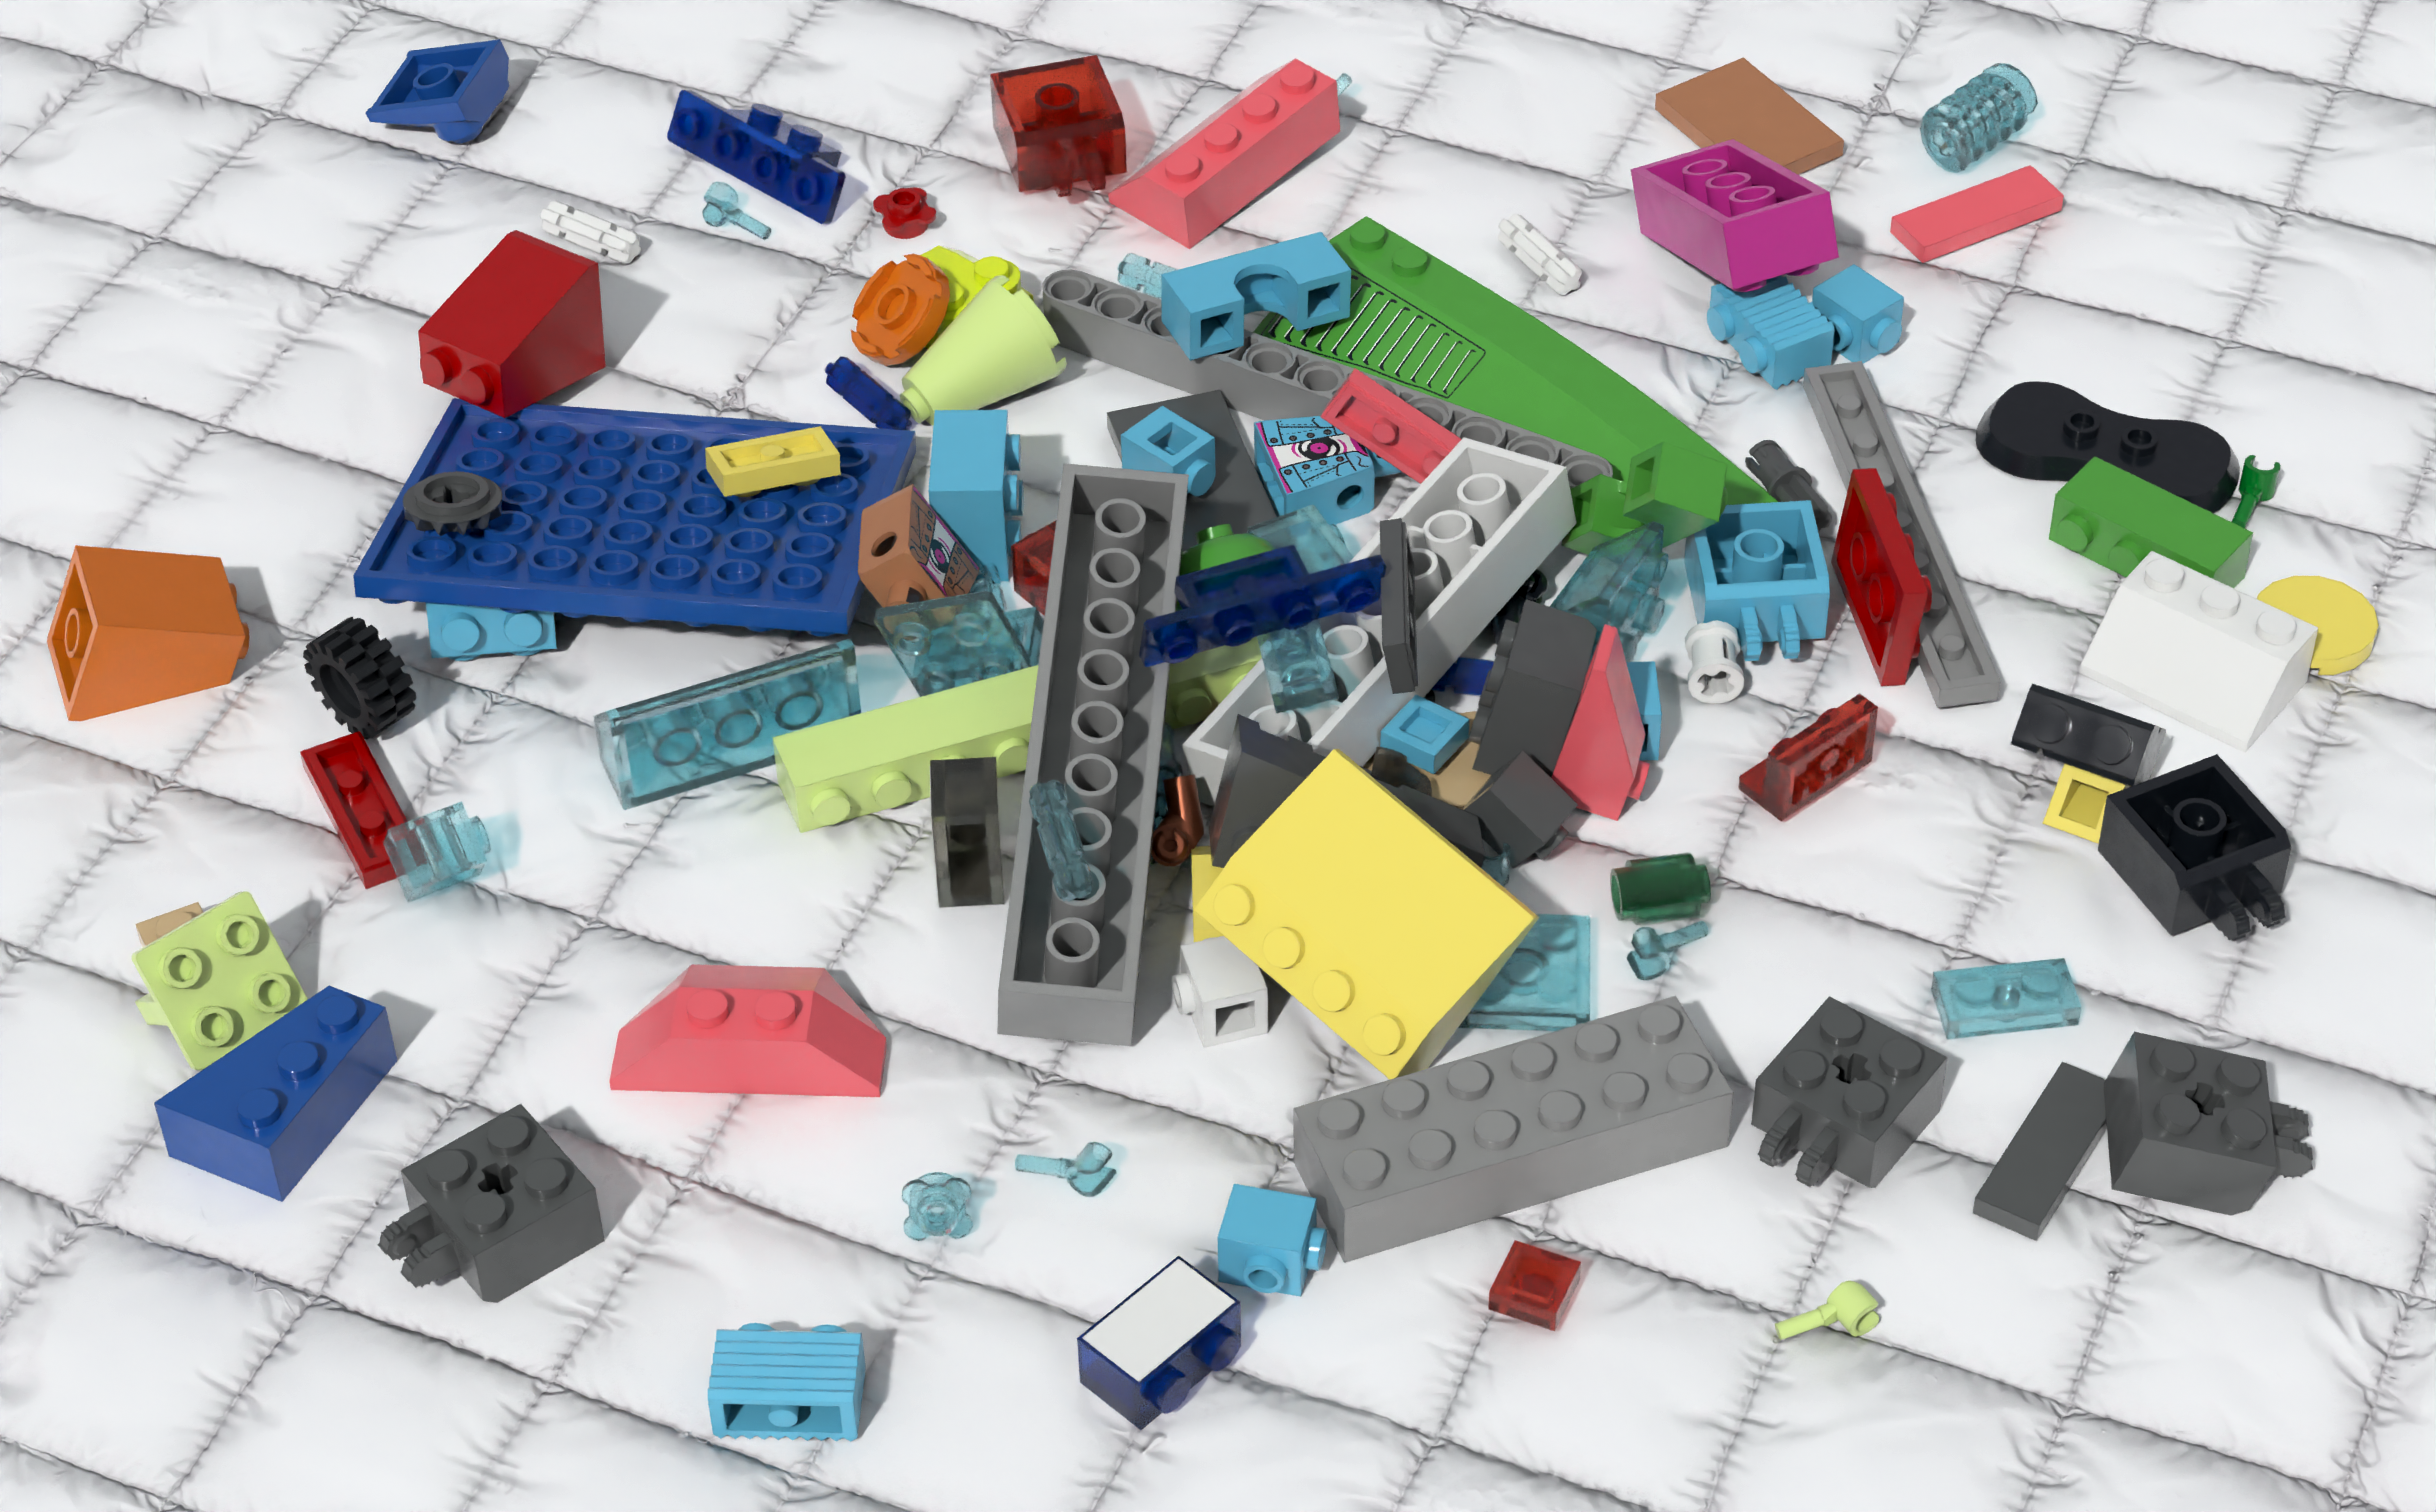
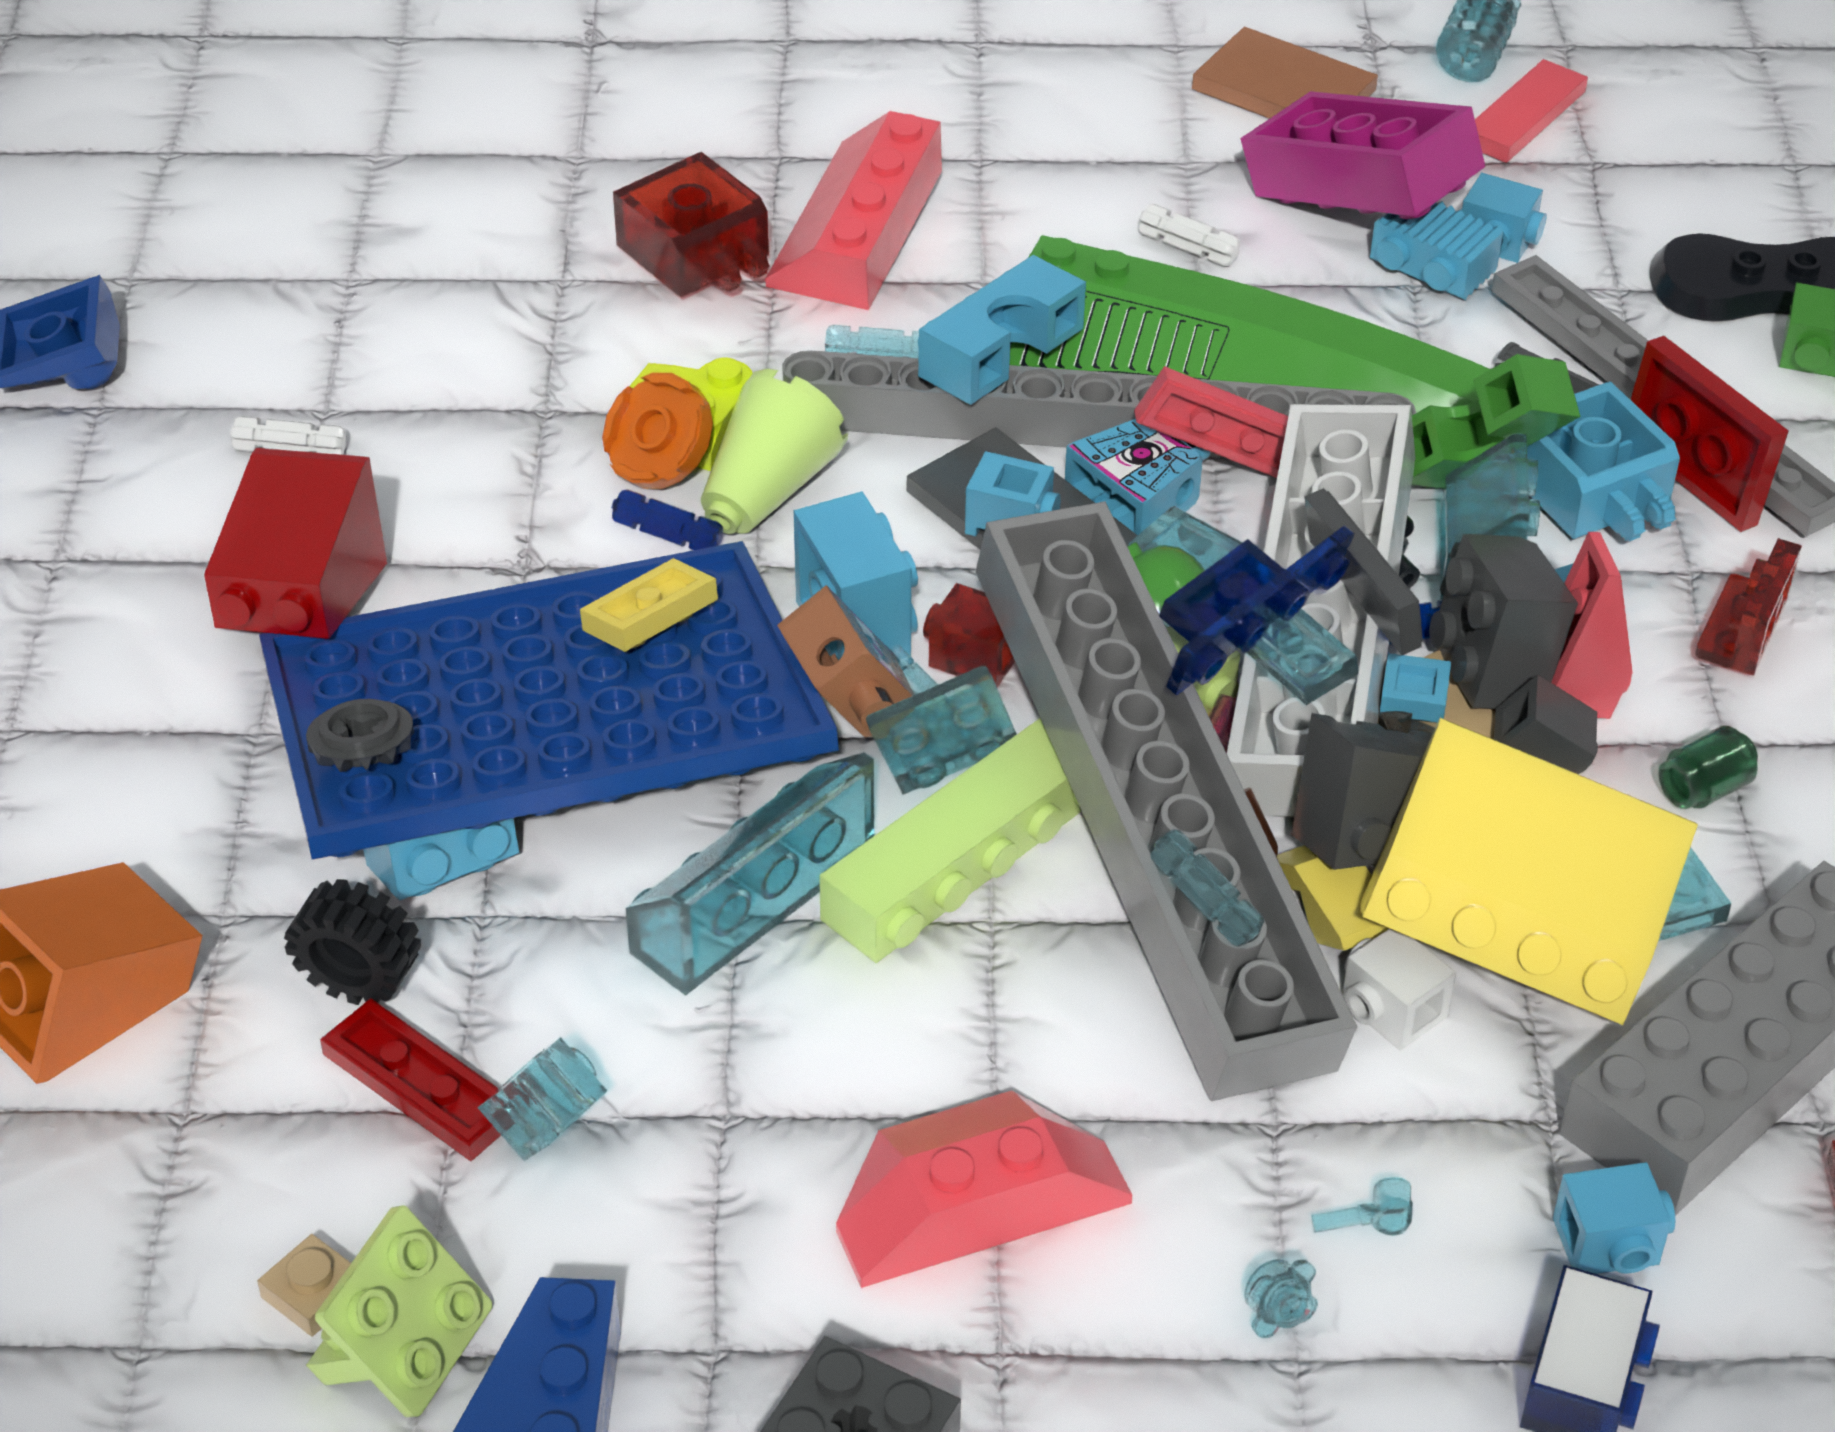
camera: 25 degrees left, 0 degrees up
(721, 207) = (404, 384): clear light blue hand -> none
(762, 151) = (414, 321): clear blue bracket -> none
(905, 212) = (587, 343): red plate -> none
(966, 832) = (1072, 909): clear smoke brick -> none
(1652, 951) = (1737, 829): clear light blue hand -> none
(1722, 673) = (1625, 554): white bush -> none

